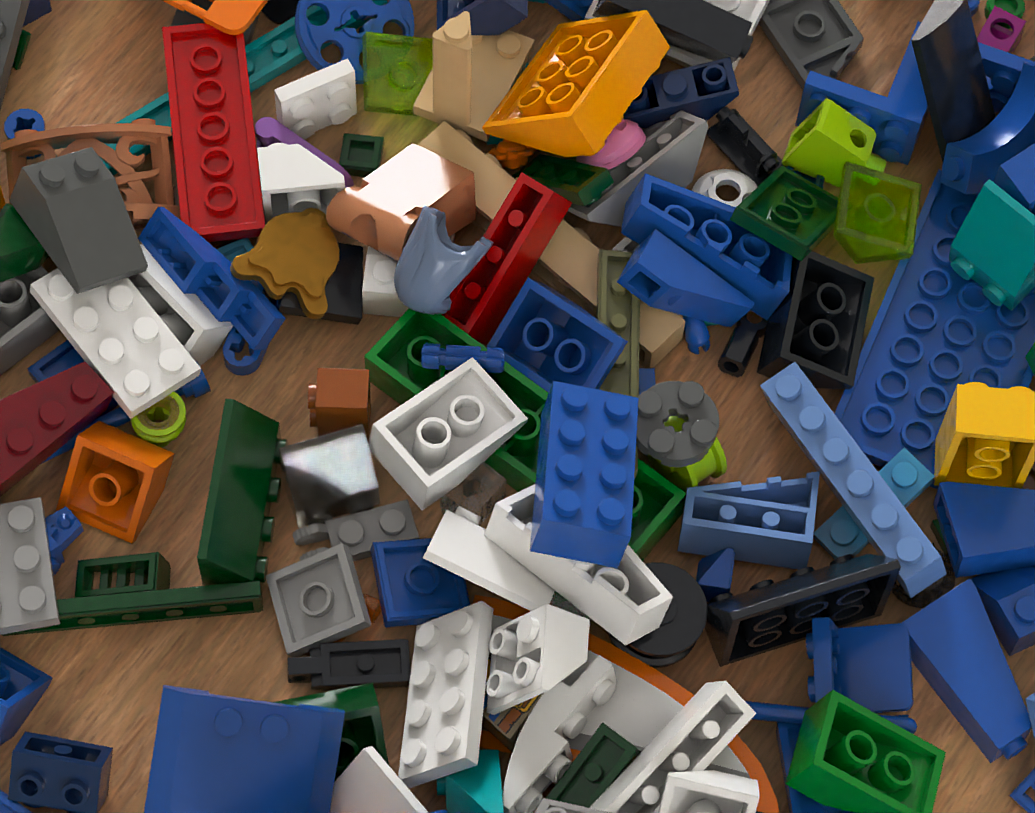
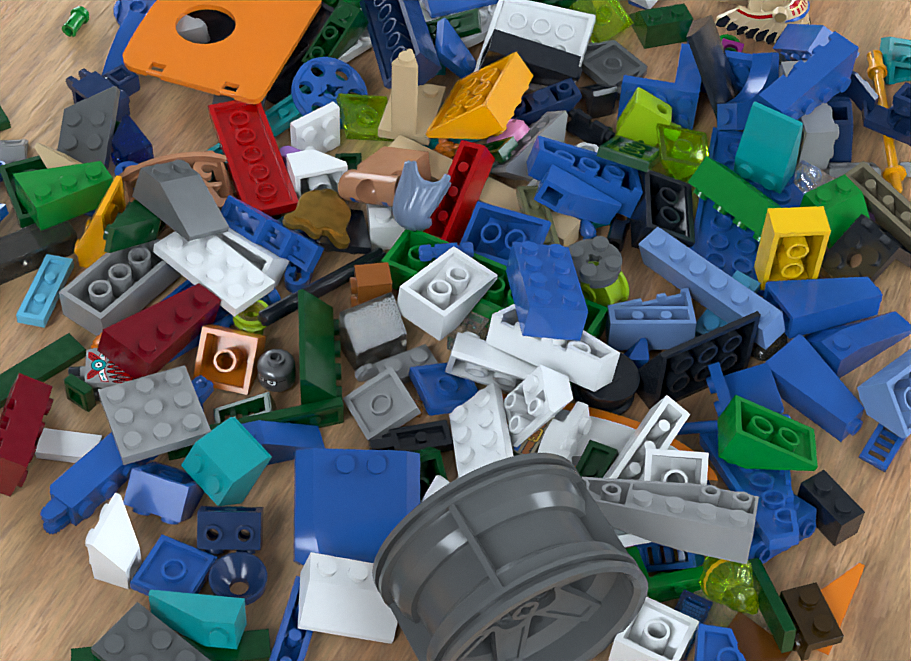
camera: 10 degrees left, 15 degrees down
(37, 77) = (130, 143): none -> clear blue slope
(70, 673) = (226, 462): none -> teal slope
(152, 636) = (284, 439): none -> blue slope
(177, 515) = (276, 370): none -> flat silver head
(274, 379) = (318, 288): none -> black axle
(770, 87) = (599, 99): none -> black slope
(945, 321) = (732, 195): none -> green slope

